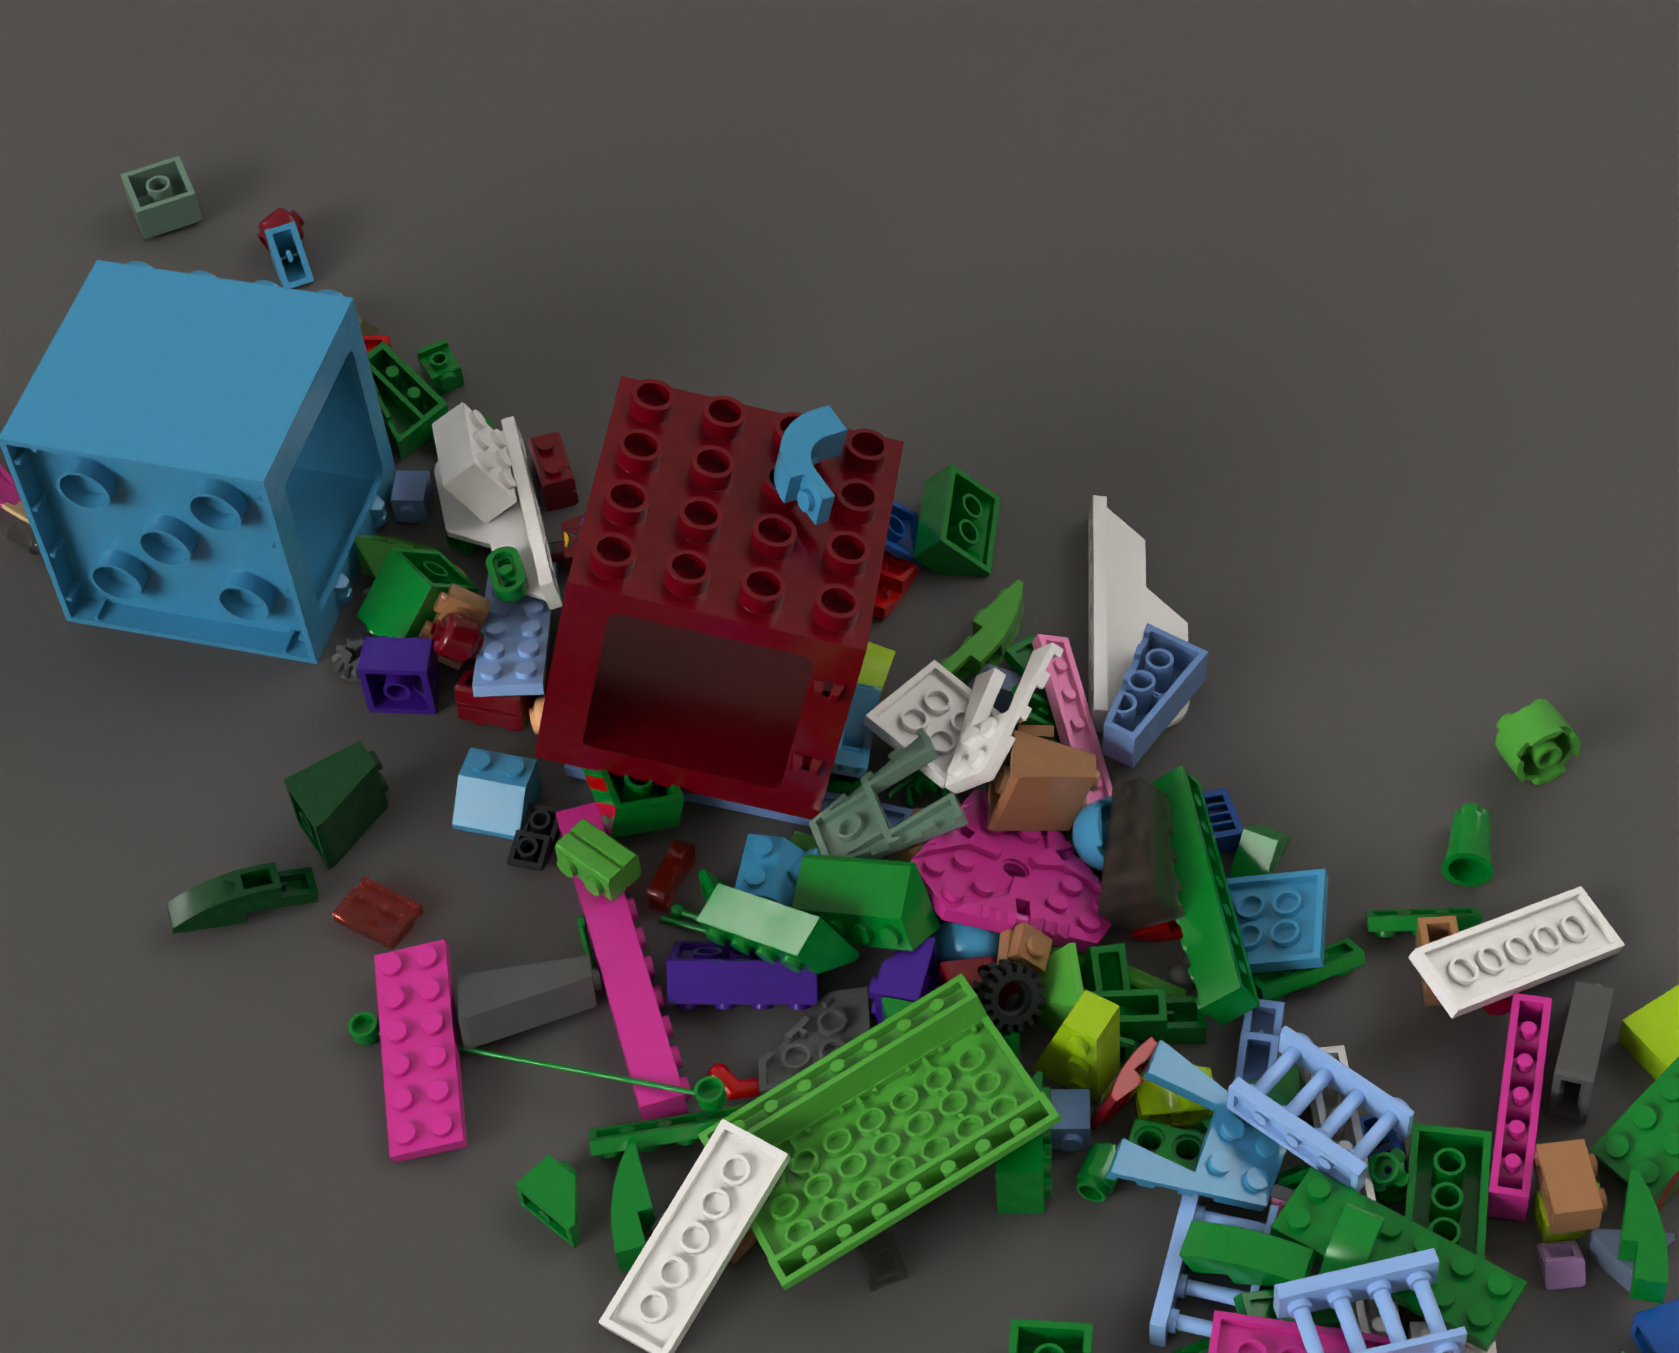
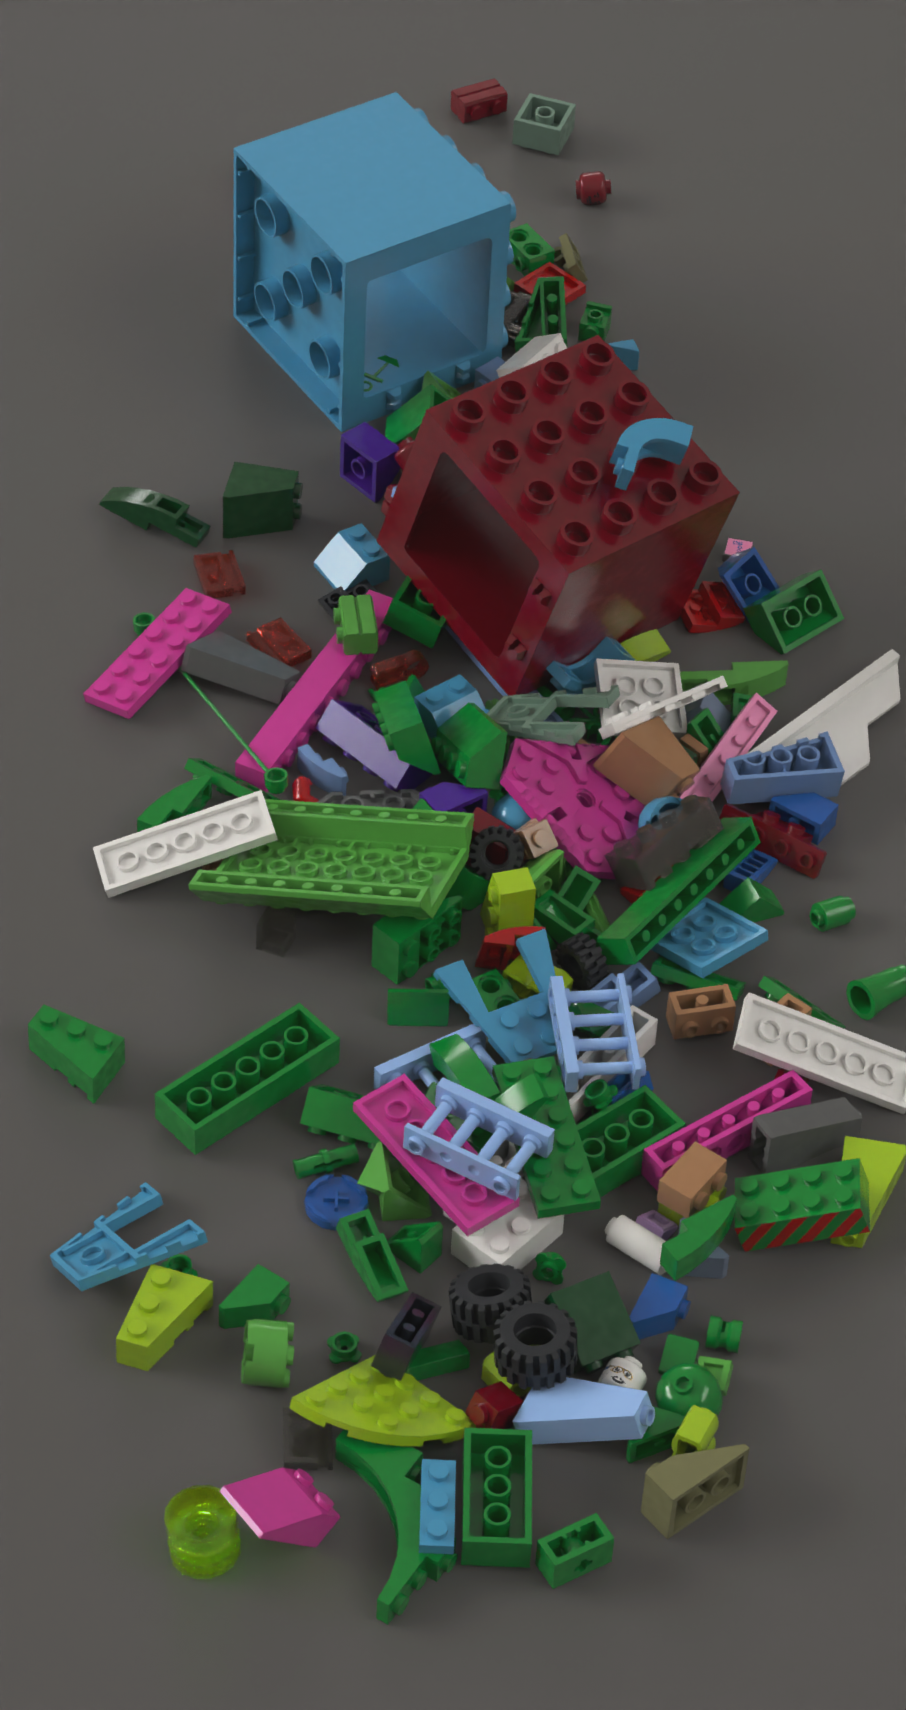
camera: 35 degrees right, 5 degrees down
(65, 217) = (479, 100): none -> dark red brick
(288, 255) = (580, 204): dark azure slope -> none
(506, 380) = (627, 352): none -> dark azure slope
(523, 940) = (280, 642): none -> clear red plate
(553, 1197) = (143, 774): green slope -> none
(735, 1045) = (322, 773): none -> medium blue slope
(1074, 1109) = (462, 944): medium blue brick -> none
(1100, 1222) = (418, 1007): none -> green slope
(1201, 1039) = (582, 961): none -> black tyre
(1203, 723) = (809, 810): none -> blue slope
(1214, 763) = (783, 840): none -> dark red bracket
(1338, 802) = (832, 913): none -> green brick
(1356, 1002) = (700, 1011): none -> medium nougat brick
(1576, 1291) = (635, 1242): none -> white brick

